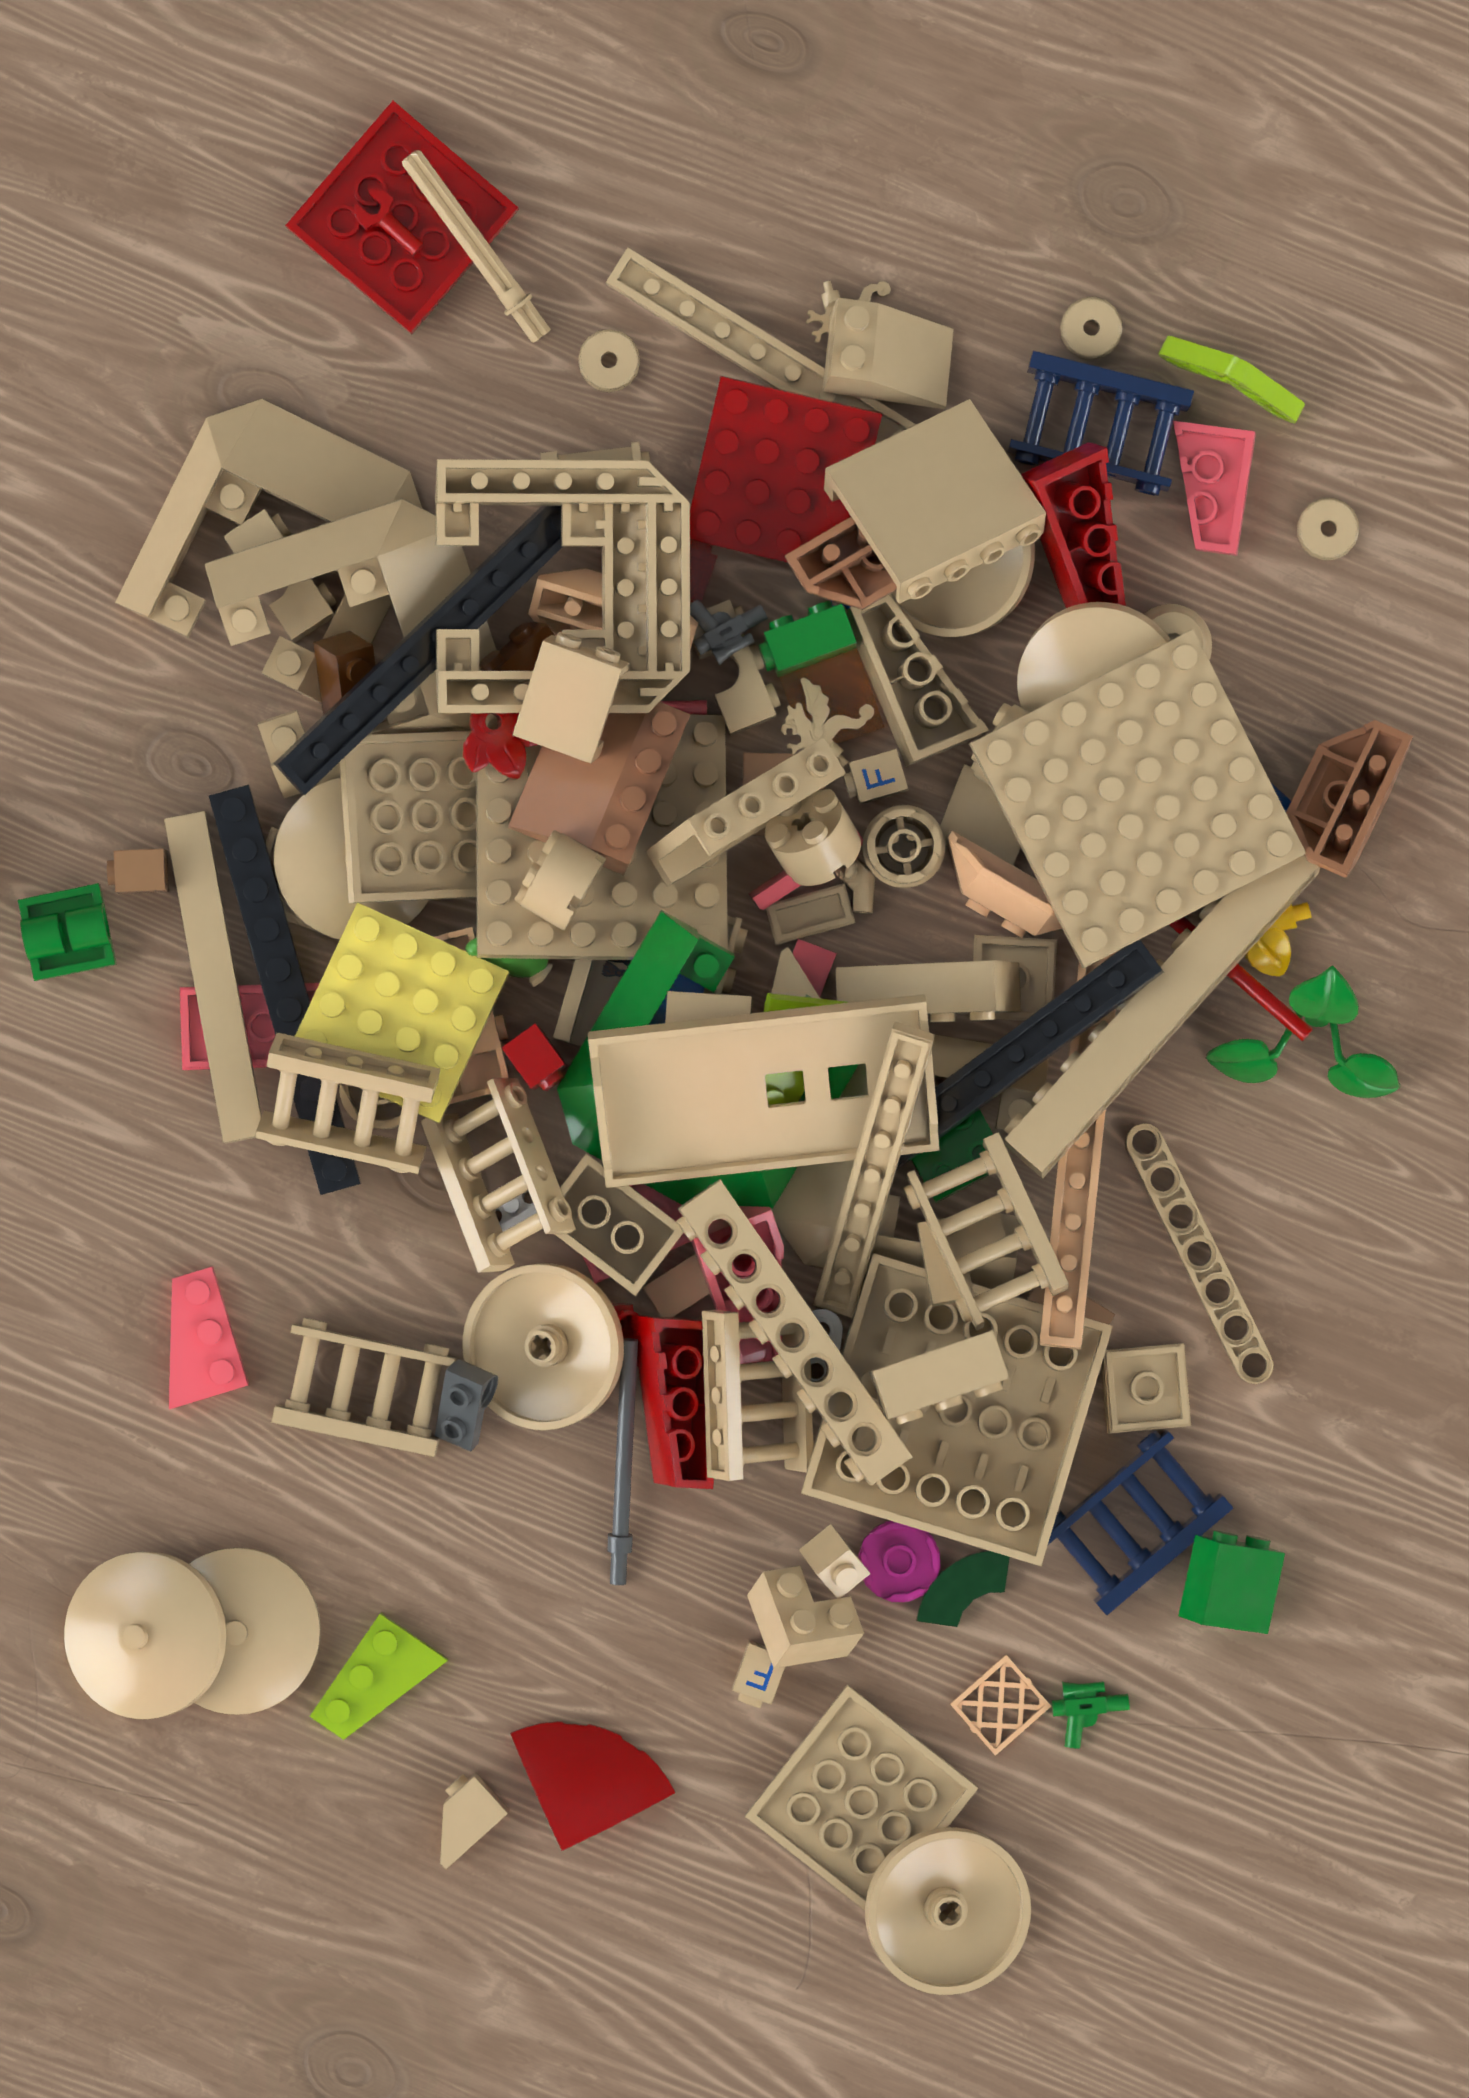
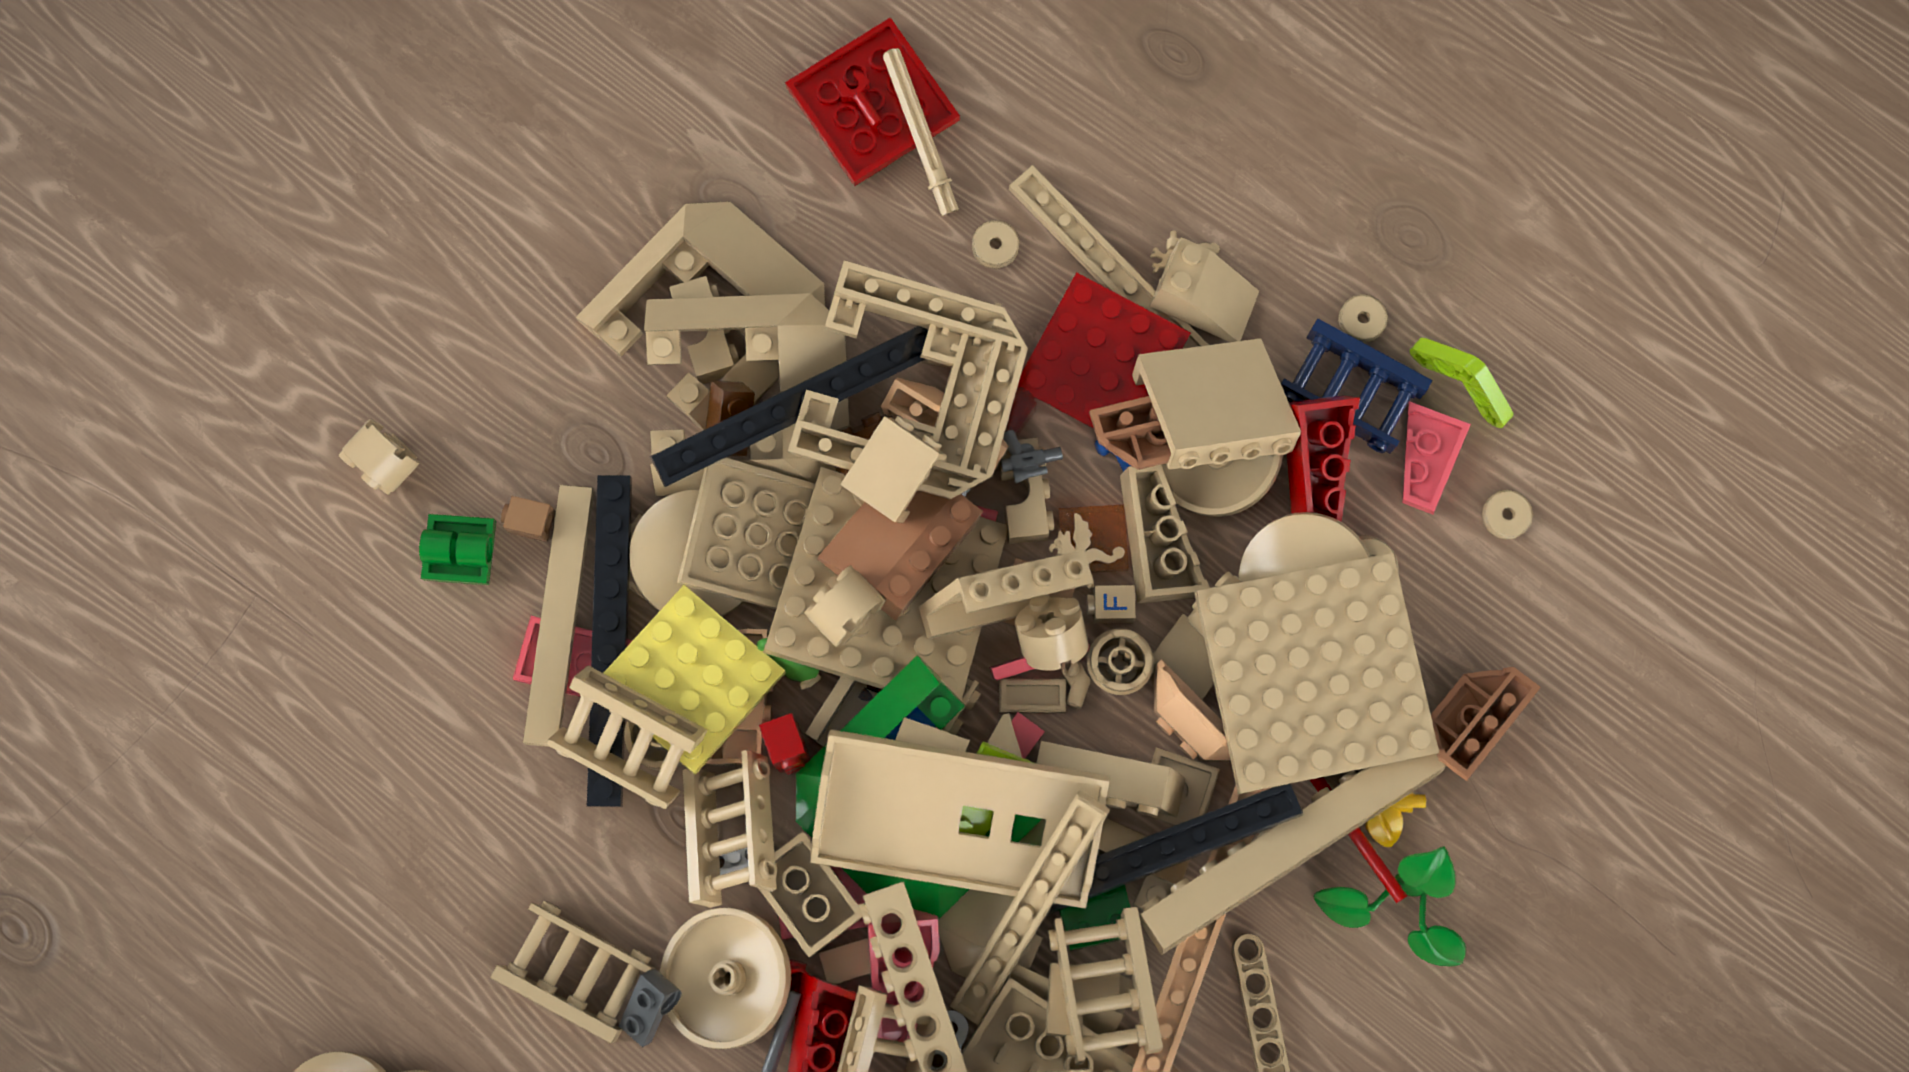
camera: 15 degrees right, 10 degrees down
(201, 1341) = (460, 897): coral wing -> none
(495, 746) = (827, 495): red plate -> none
(807, 641) = (1088, 483): green brick -> none

